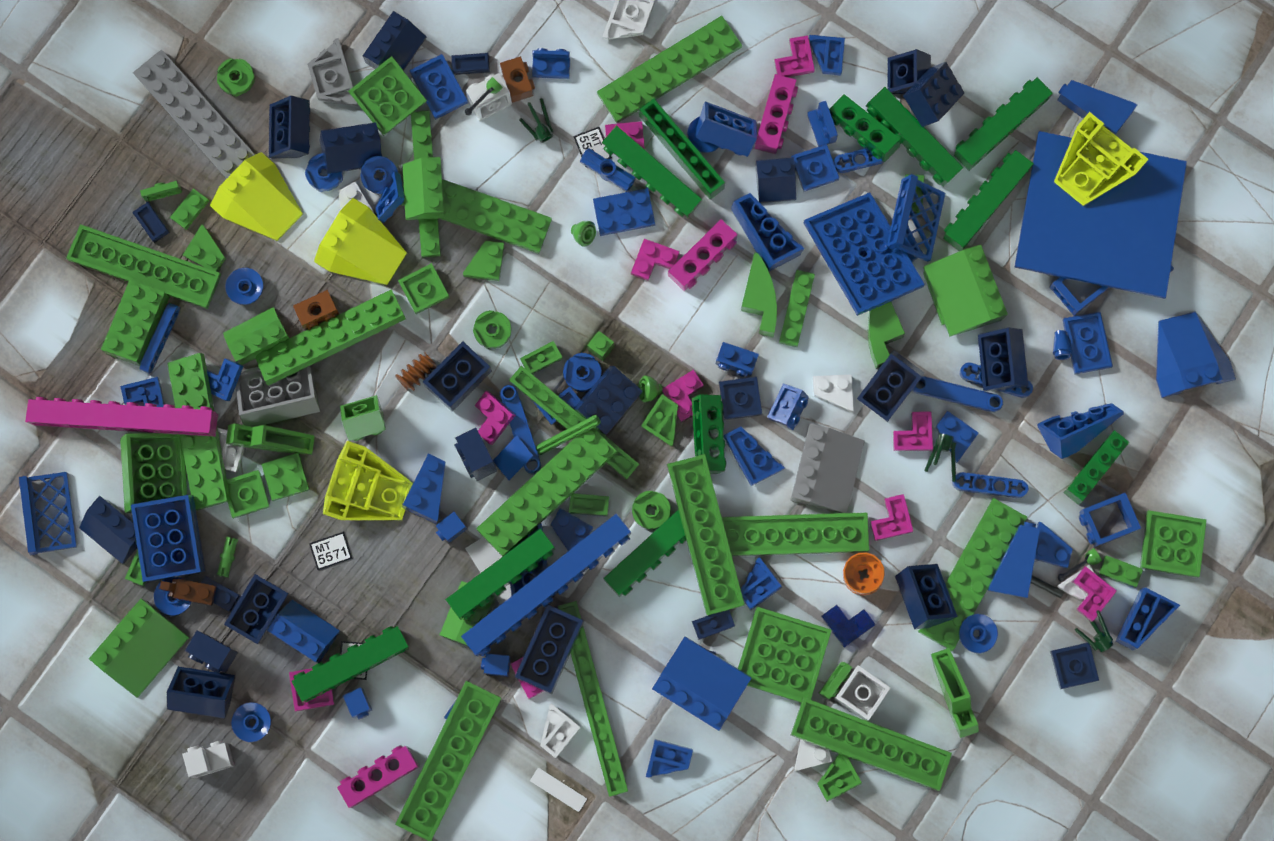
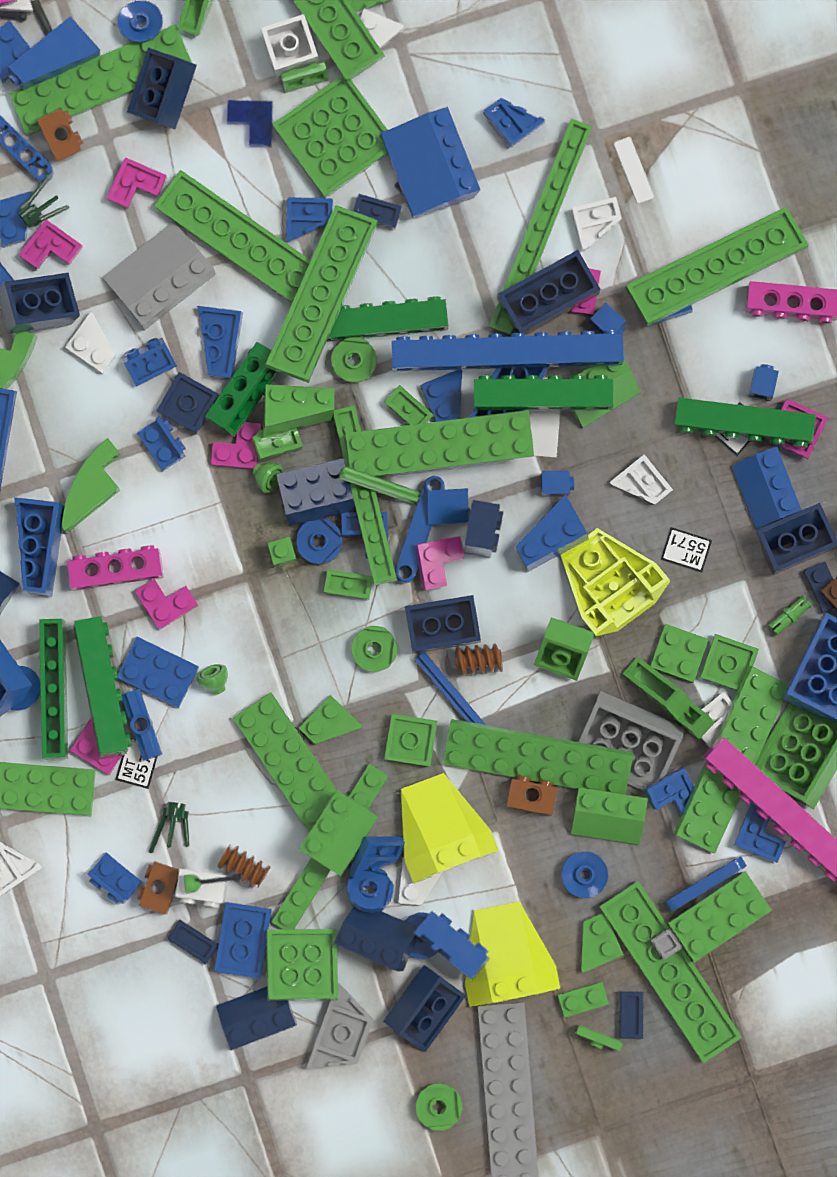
camera: 145 degrees left, 5 degrees up
(157, 279) = (666, 943): none -> light grey tile
(296, 175) = (453, 944): none -> blue wedge
(392, 574) = (643, 481): none -> white wing
(419, 338) = (447, 689): none -> blue axle
(472, 130) = (243, 866): none -> dark orange piece
(664, 445) = (295, 407): none -> bright green wedge
(796, 308) = (65, 450): bright green plate -> none
(874, 570) = (205, 137): orange wheel -> none
(961, 504) = (64, 147): none -> dark orange brick

